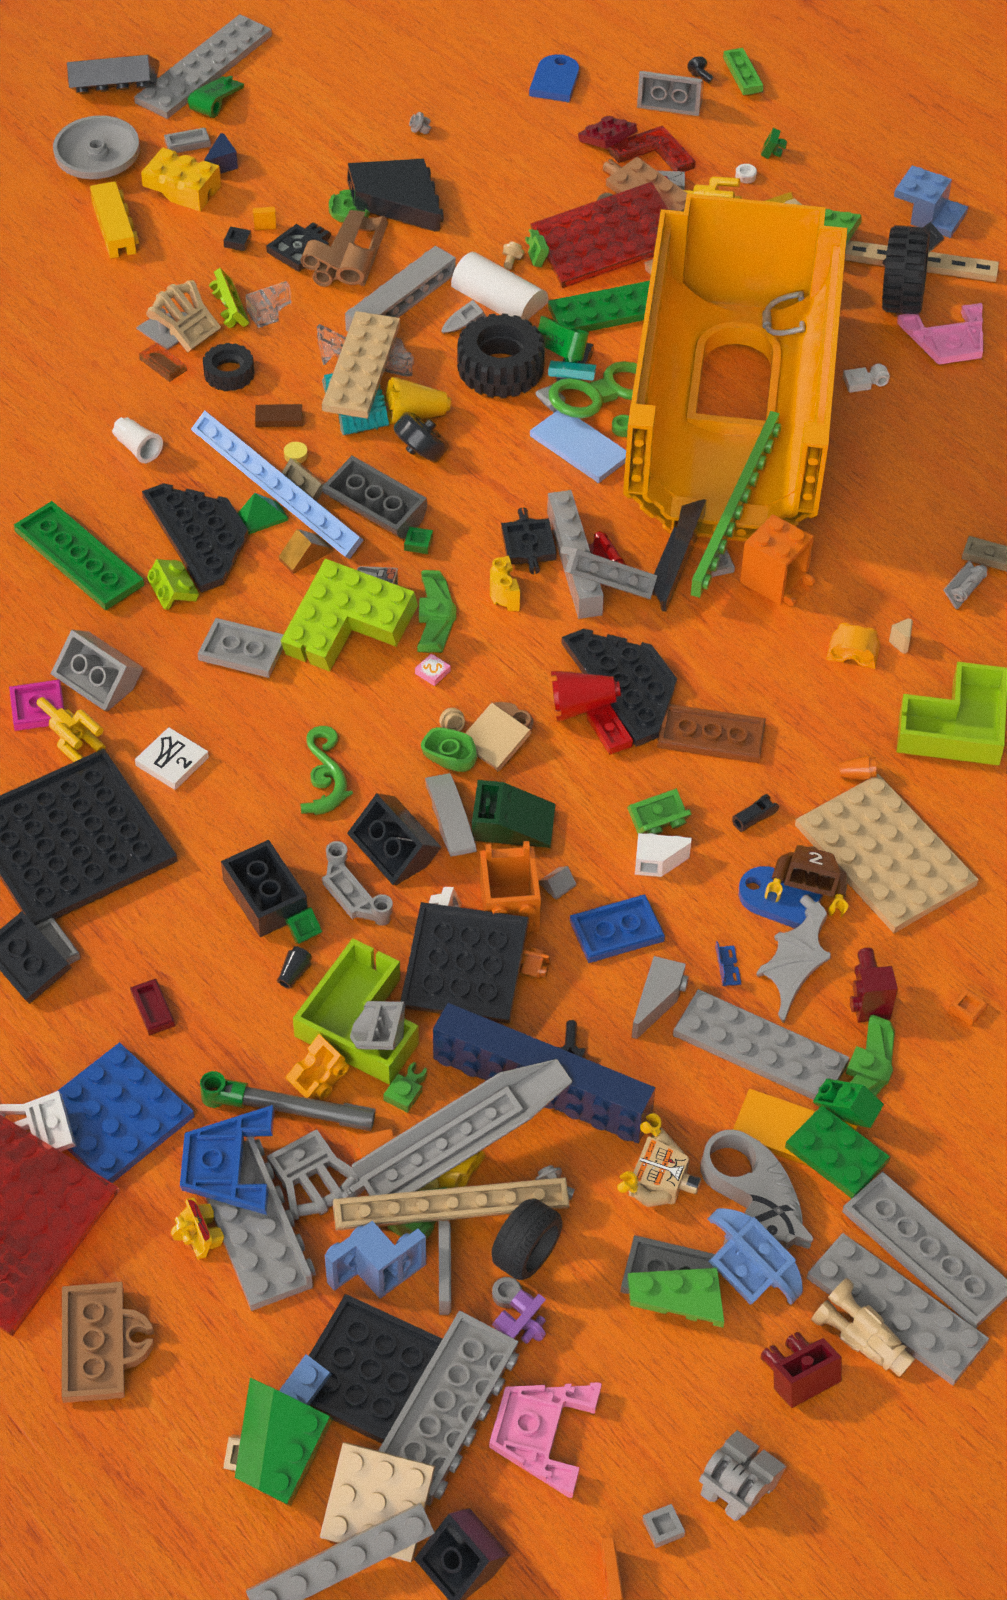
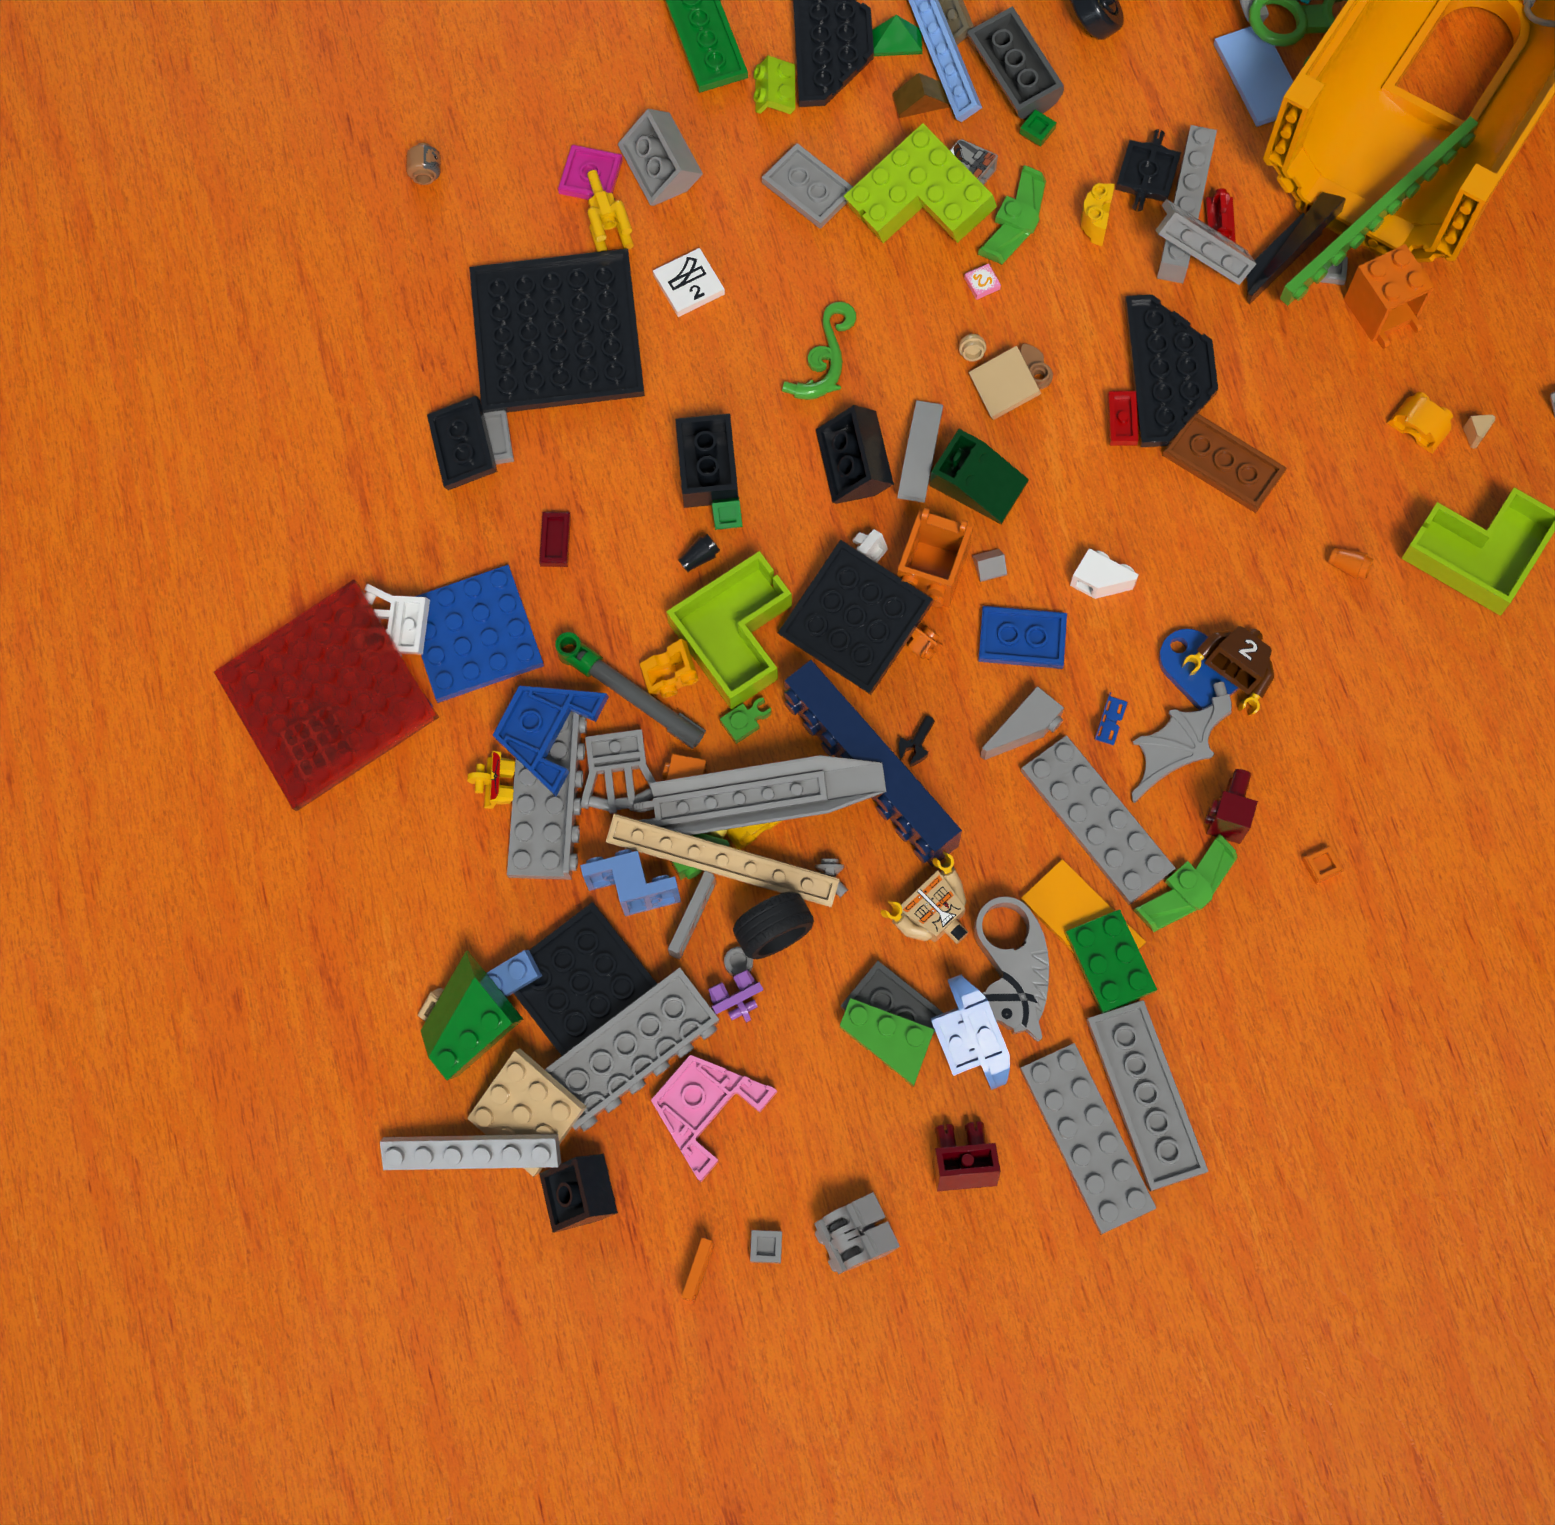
camera: 30 degrees right, 20 degrees up
(99, 1341) = (363, 851): medium nougat plate -> none
(350, 892) = (786, 492): light grey plate -> none
(379, 1026) = (739, 655): light grey slope -> none
(450, 749) = (953, 379): bright green piece -> none
(582, 693) = (1110, 370): red cone -> none
(659, 812) = (1124, 531): bright green bracket -> none
(754, 814) = (1218, 569): black bar -> none
(849, 1102) = (1145, 919): green slope -> none
(866, 1332) = (1041, 1151): tan piece -> none
(887, 853) = (1331, 665): tan plate -> none

